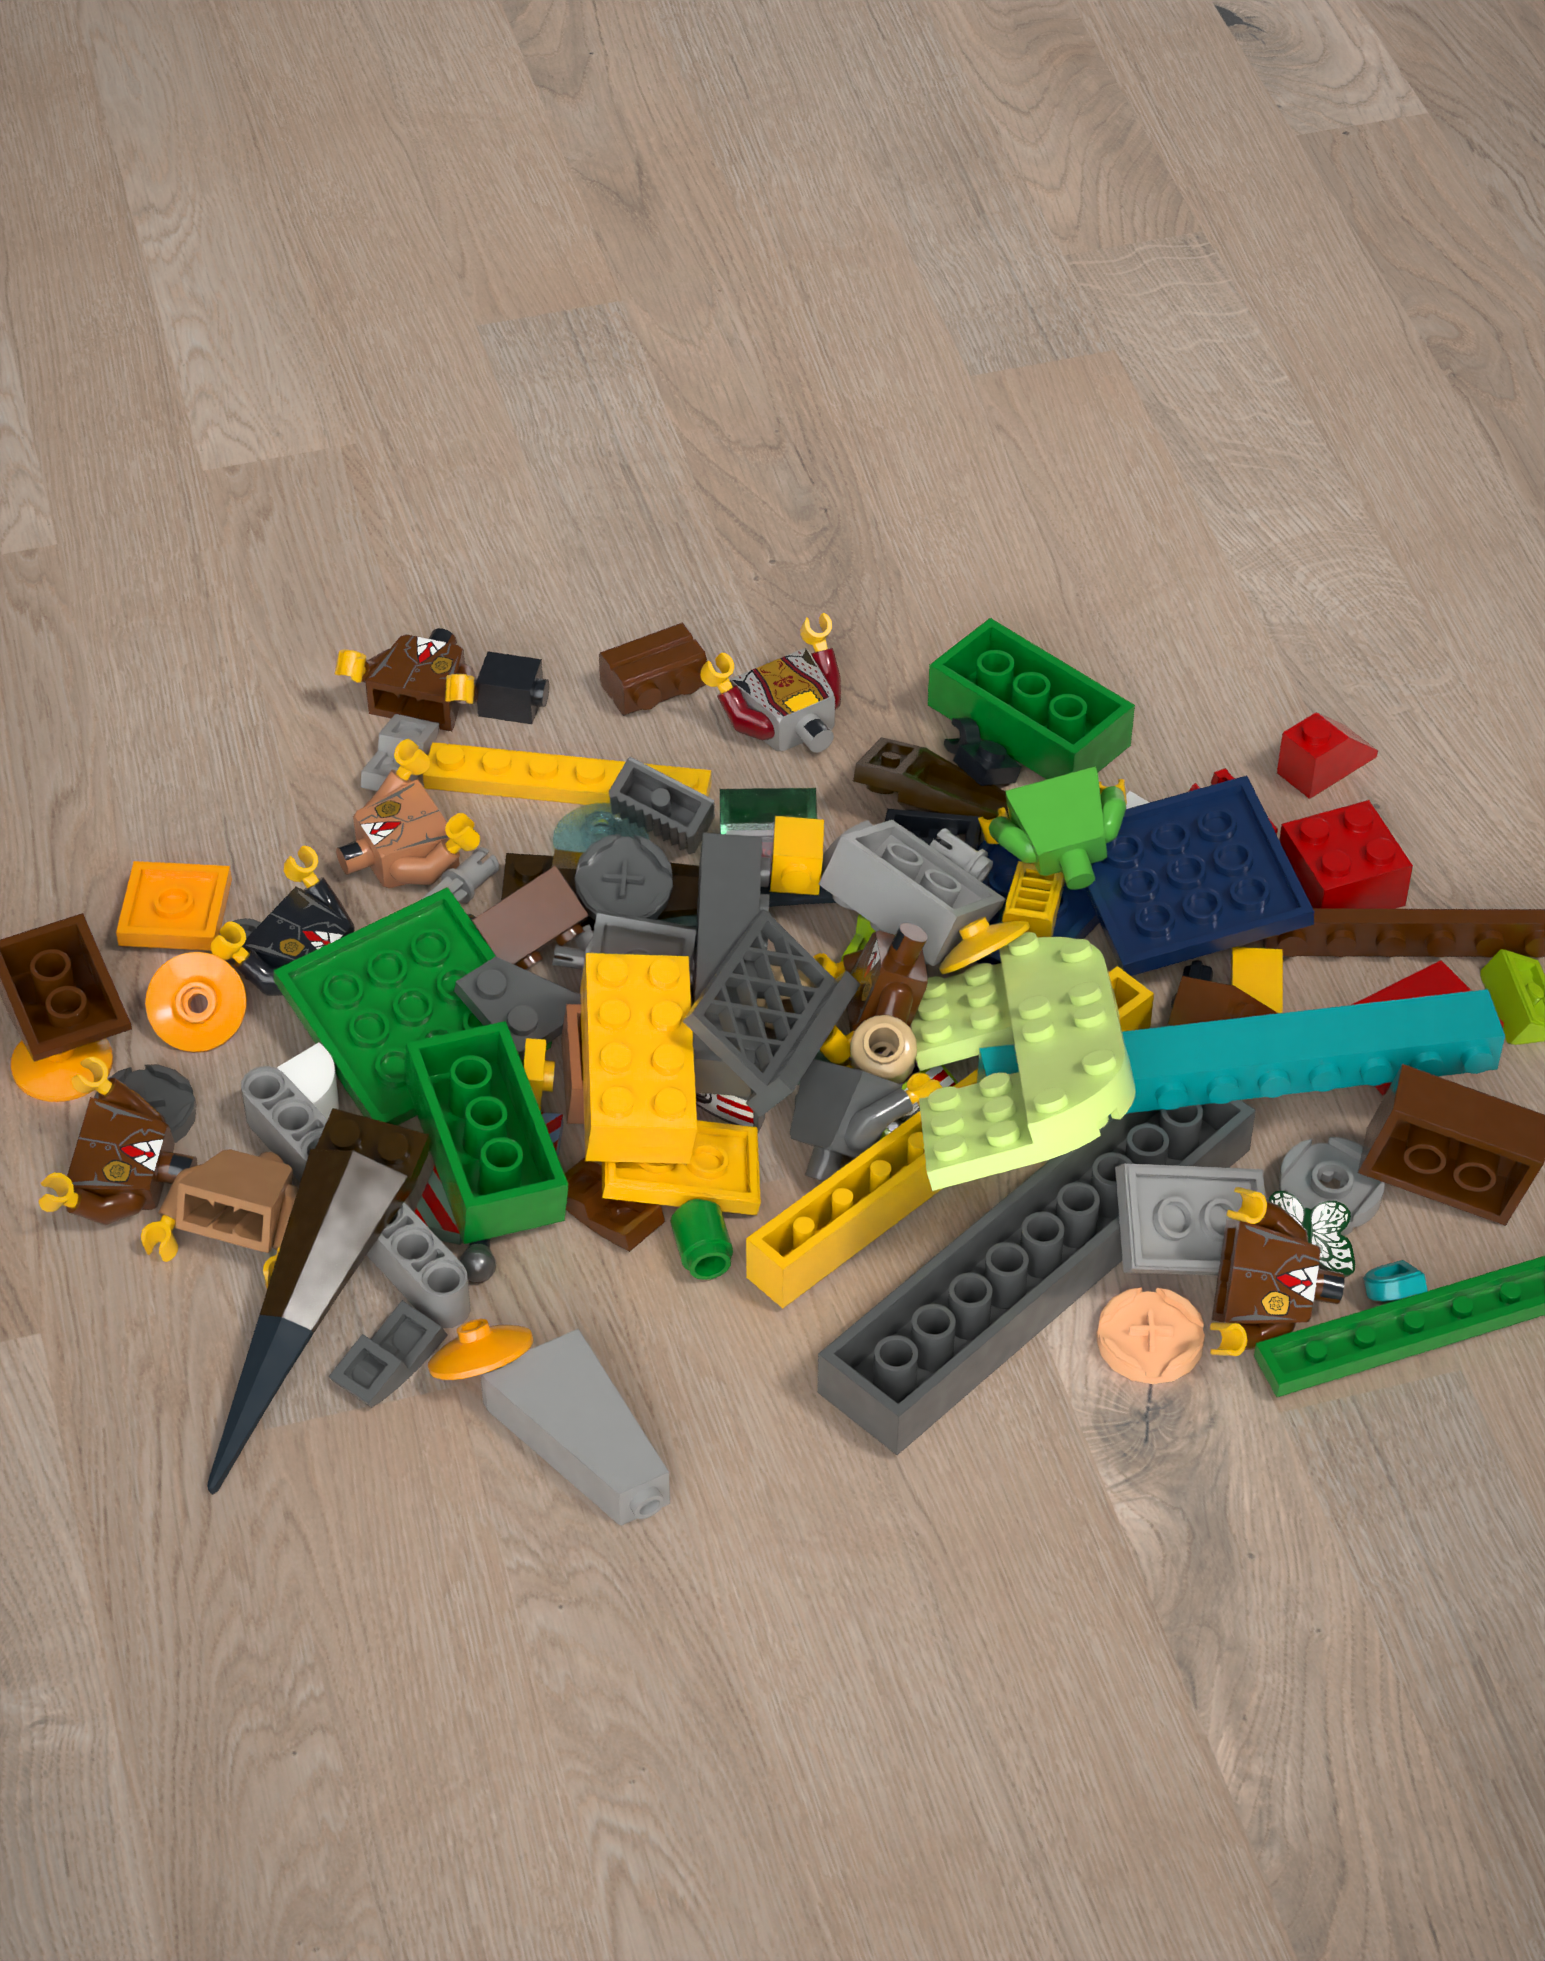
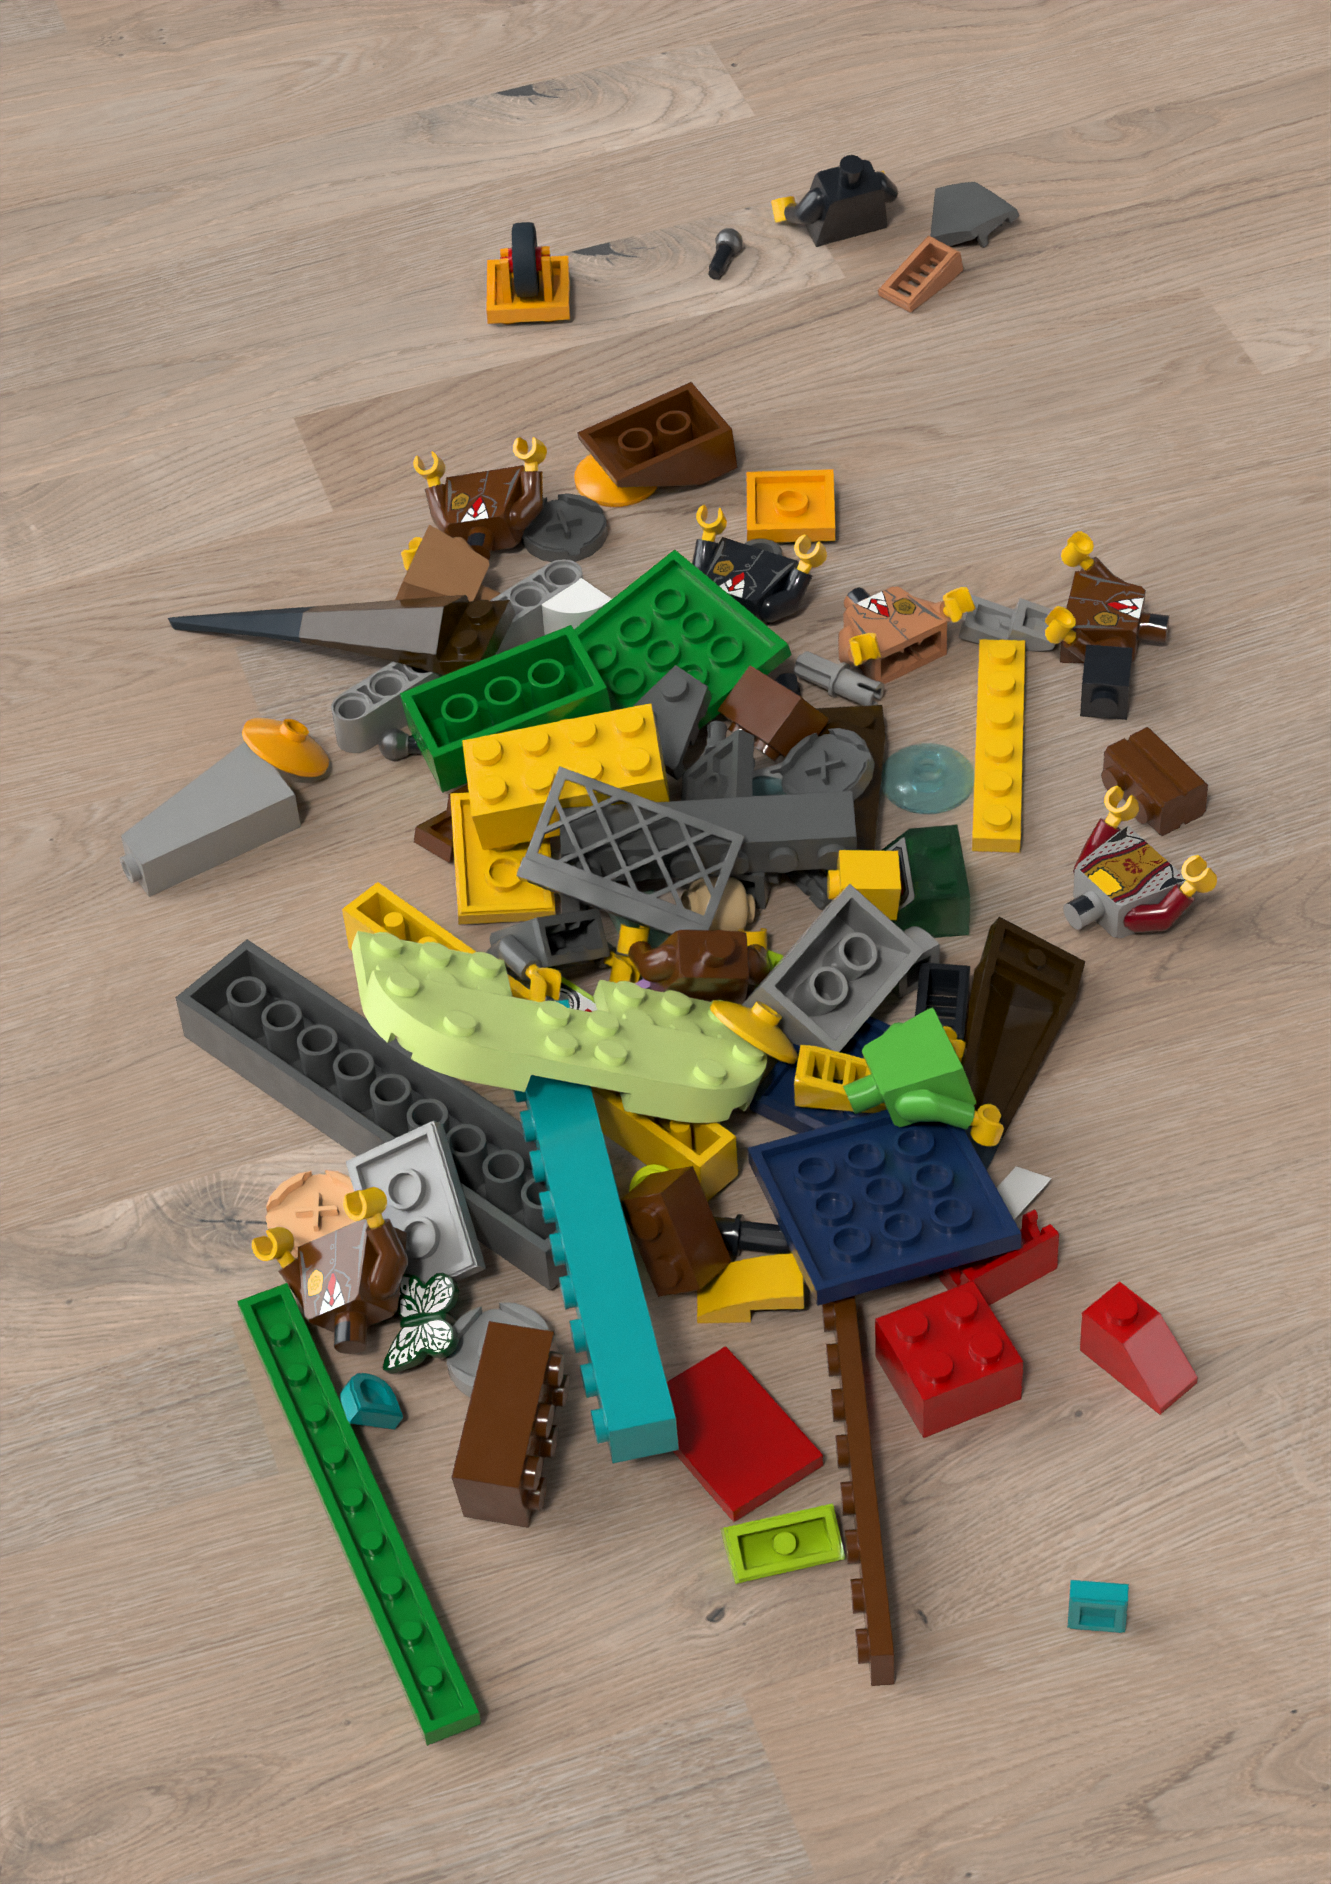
camera: 90 degrees right, 0 degrees up
(175, 987) = (668, 528): light orange dish -> none
(391, 1357) = (291, 697): dark grey slope -> none
(661, 805) = (939, 784): dark grey brick -> none
(702, 1238) = (418, 877): green brick -> none
(887, 1036) = (602, 954): tan head -> none
(963, 855) = (898, 1008): light grey pin -> none
(981, 760) = (1072, 1050): black plate -> none
(1030, 702) = (1143, 1072): green brick -> none

